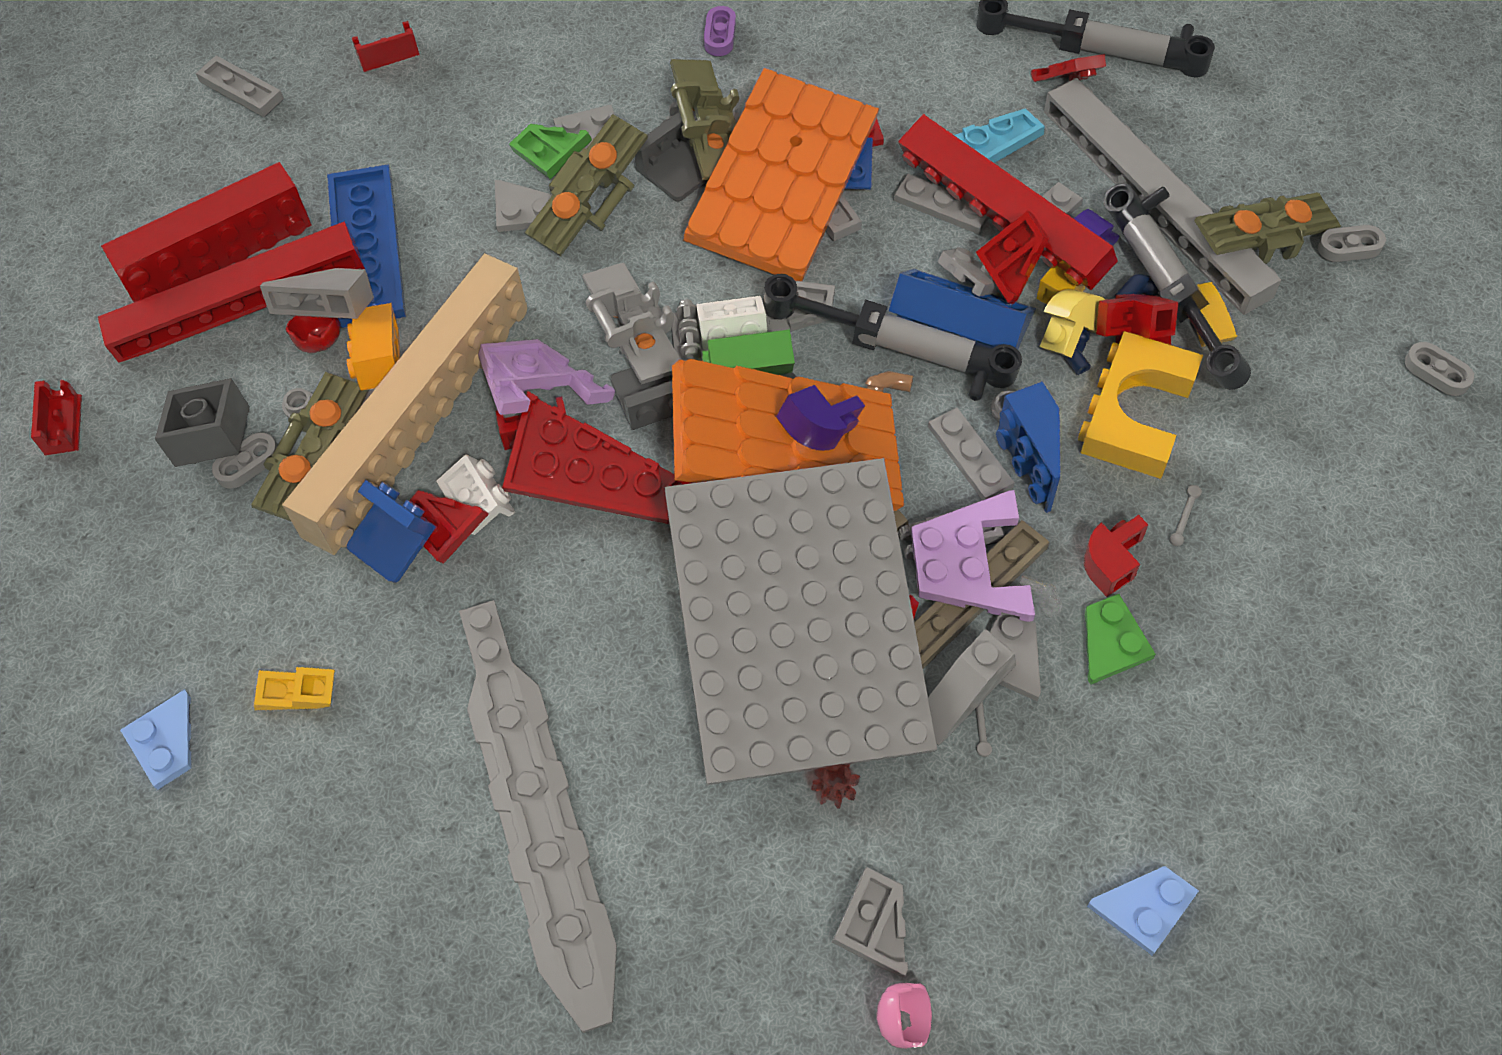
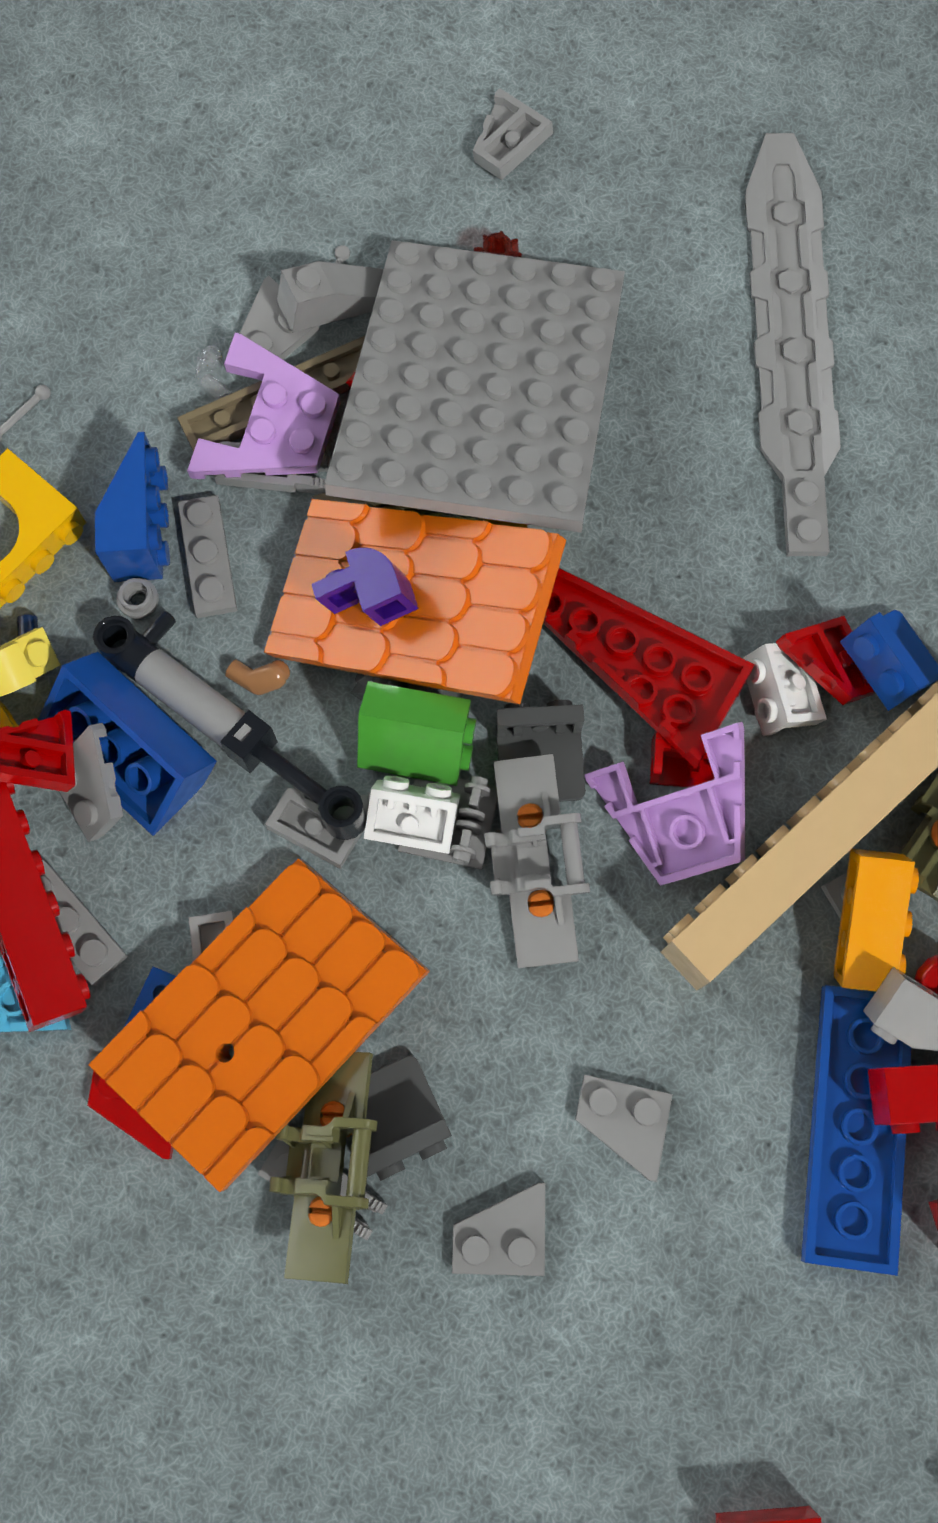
camera: 165 degrees left, 15 degrees up
(548, 147) = (567, 1211): bright green wing -> none
(579, 178) = (539, 1115): olive piece -> none
(717, 35) = (241, 1372): medium lavender plate -> none
(913, 1000) = (516, 54): bright pink hair -> none
(1107, 554) = (125, 390): red brick -> none
(1113, 639) = (165, 310): bright green wing -> none
(1146, 906) = (264, 80): light blue wing -> none

